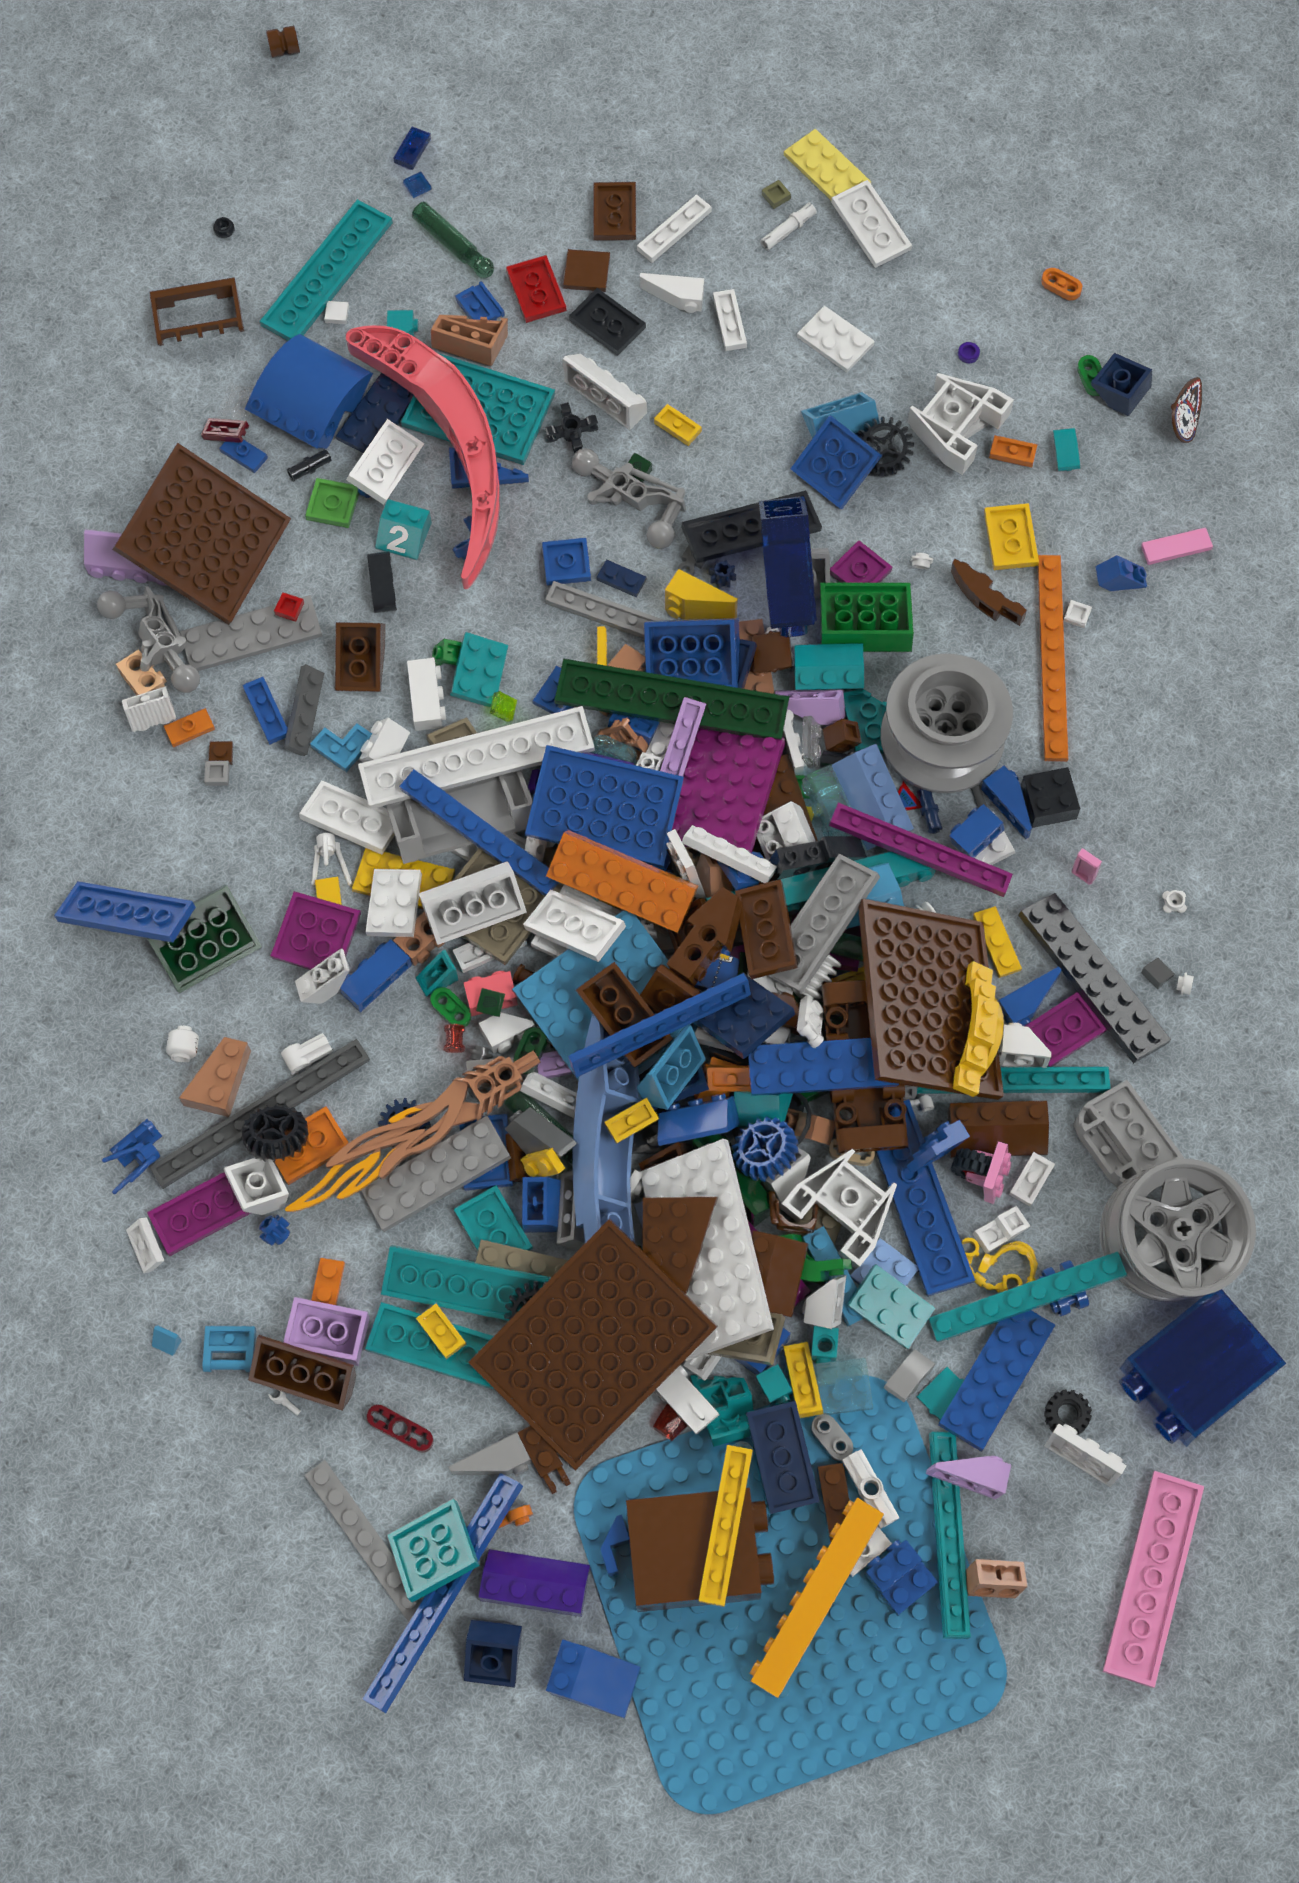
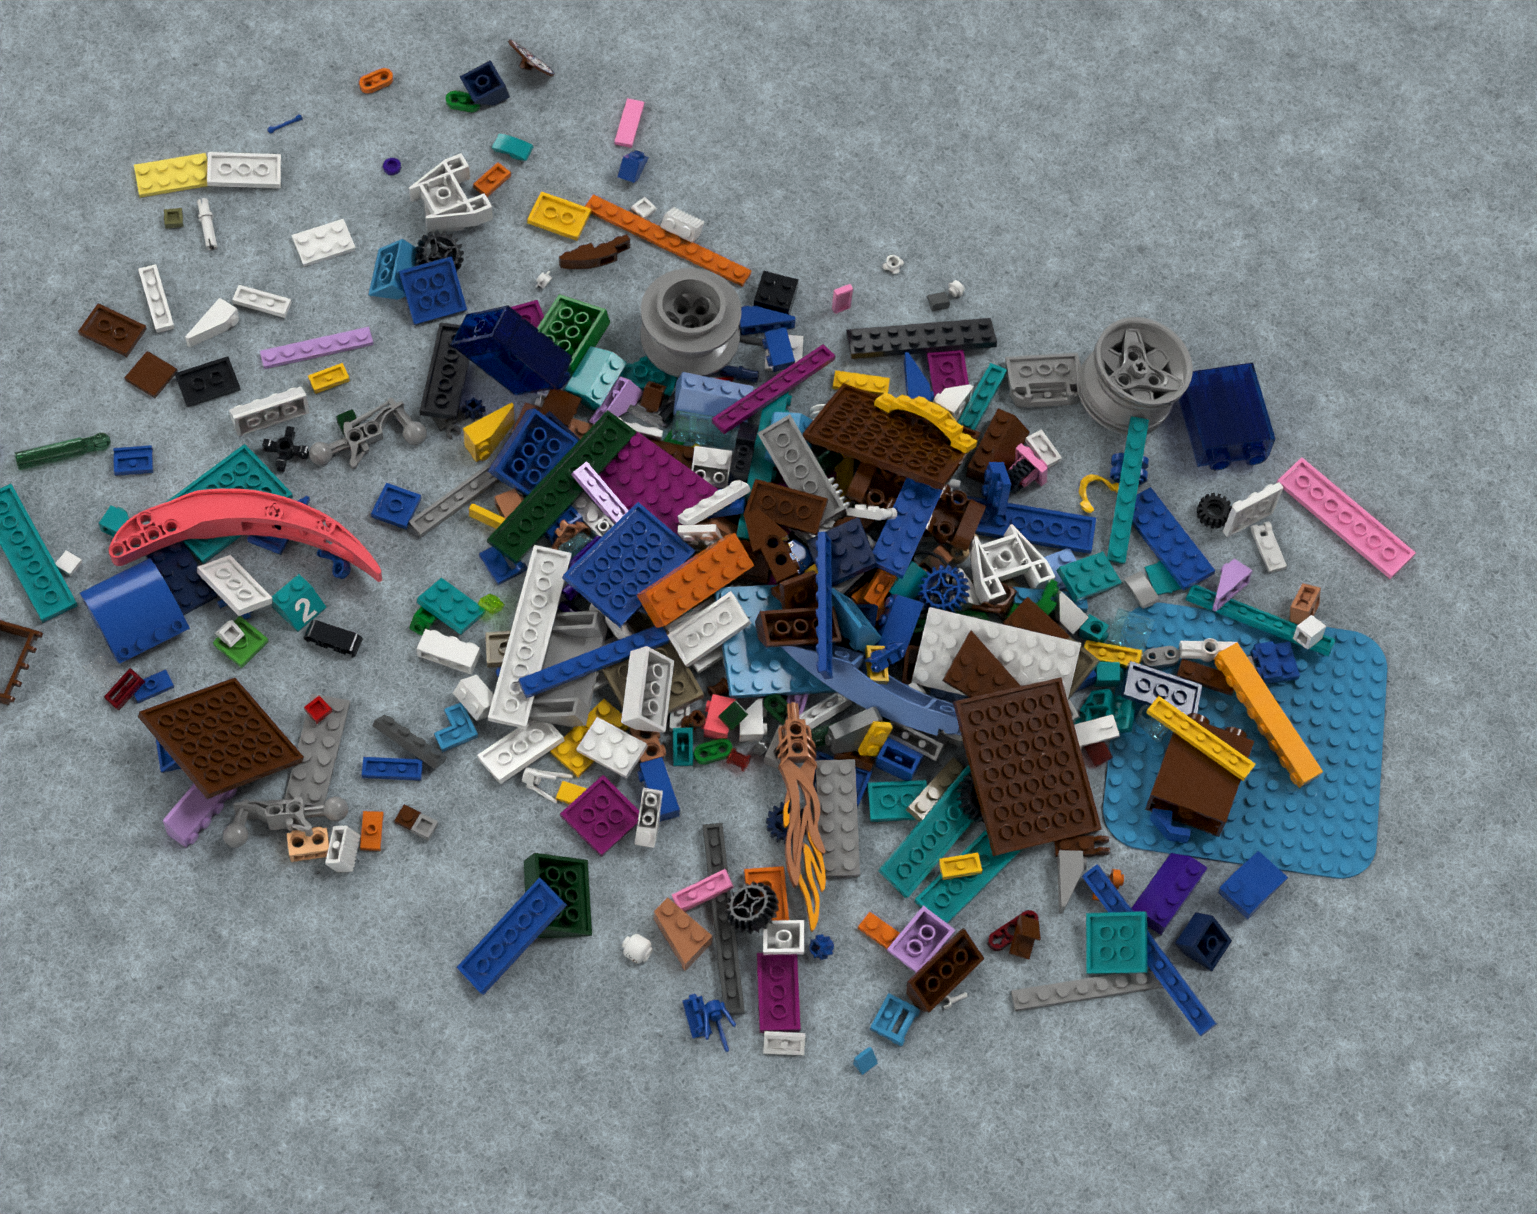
camera: 70 degrees left, 5 degrees down
(278, 1076) = (703, 890): none -> bright pink tile
(302, 1056) = (694, 867): white piece -> none
(309, 465) = (195, 644): black pin -> none
(332, 486) = (229, 633): none -> white slope
(359, 656) = (387, 681): reddish brown slope -> none
(394, 1444) = (1025, 934): none -> reddish brown slope
(460, 967) = (693, 720): none -> reddish brown bush
(469, 338) = (161, 478): nougat wedge -> none
(536, 288) = (144, 415): red plate -> none
(621, 578) = (432, 477): dark blue plate -> none
(652, 1126) = (879, 657): none -> blue hinge
(708, 397) = (316, 347): none -> lavender plate
(939, 224) = (271, 129): none -> blue hinge
(955, 1598) = (1309, 632): none -> white brick
(979, 1279) = (1107, 506): yellow piece -> none
(1001, 1230) = (1067, 486): white slope -> none
(1057, 1502) = (1268, 547): none -> white plate
(1078, 659) = (682, 224): none -> white brick

